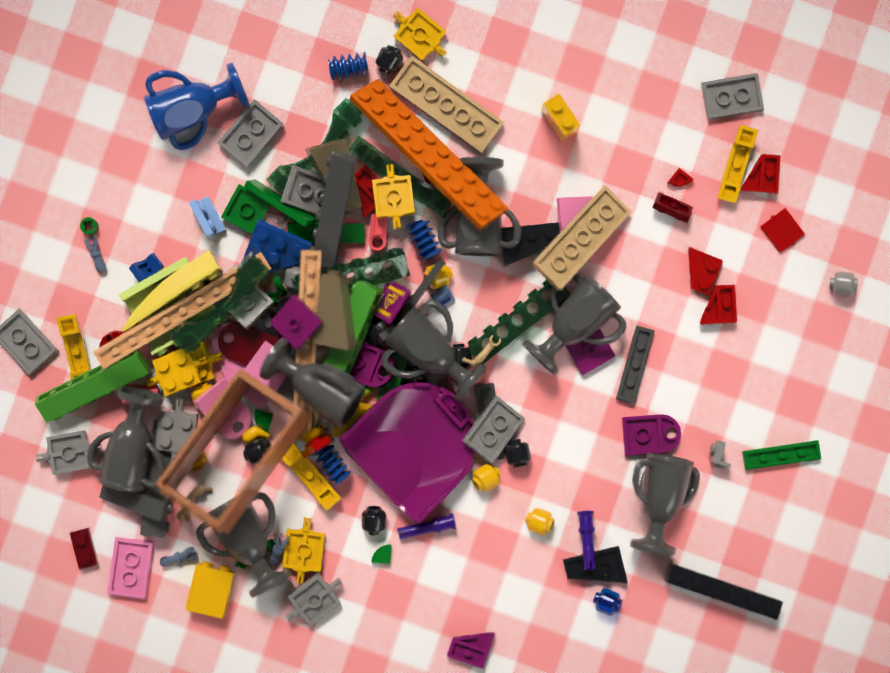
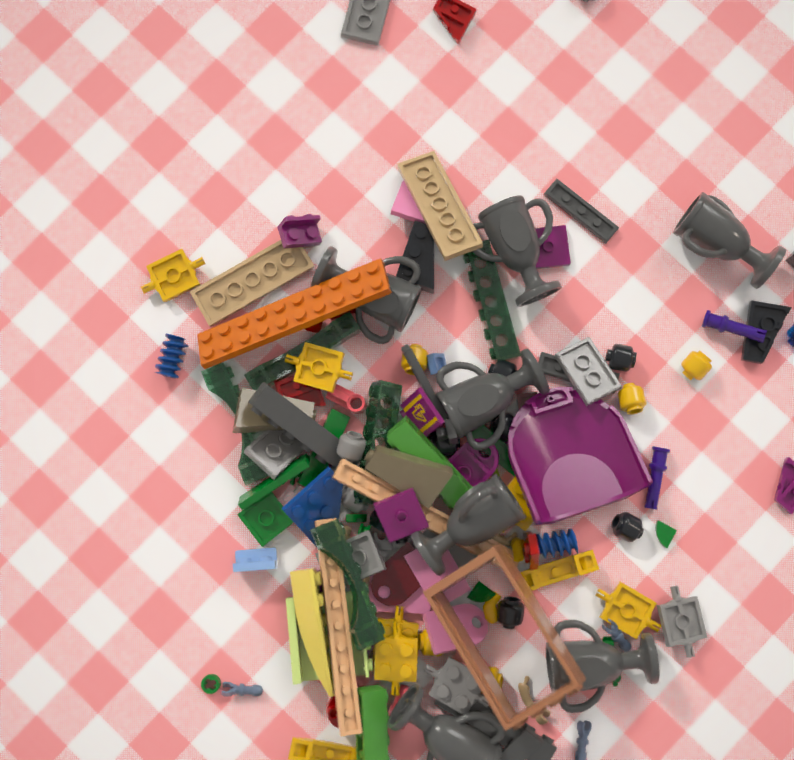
camera: 60 degrees left, 5 degrees down
(146, 268) = (278, 643): blue bracket -> none
(188, 104) = (135, 528): blue piece -> none
(210, 589) = (629, 722): yellow brick -> none
(250, 133) = (193, 481): light grey plate -> none
(336, 254) = (351, 446): none -> light grey head
(389, 59) = (183, 314): black head -> none
(424, 239) = (373, 356): blue piece -> none
(483, 354) = (510, 346): tan piece -> none
(505, 127) = (300, 231): none -> magenta bracket
(560, 117) = (314, 175): yellow brick -> none
(648, 434) = (654, 227): magenta tile -> none
(672, 207) = (447, 110): dark red plate -> none
(680, 178) = (422, 93): red tile -> none
(702, 270) = (519, 109): red wing -> none
(716, 451) = (698, 169): light grey bracket -> none
(720, 306) = (560, 107): red wing -> none
(737, 163) = (431, 35): yellow slope -> none
(781, 454) = (725, 112): green tile -> none
(782, 230) = (513, 21): red piece -> none

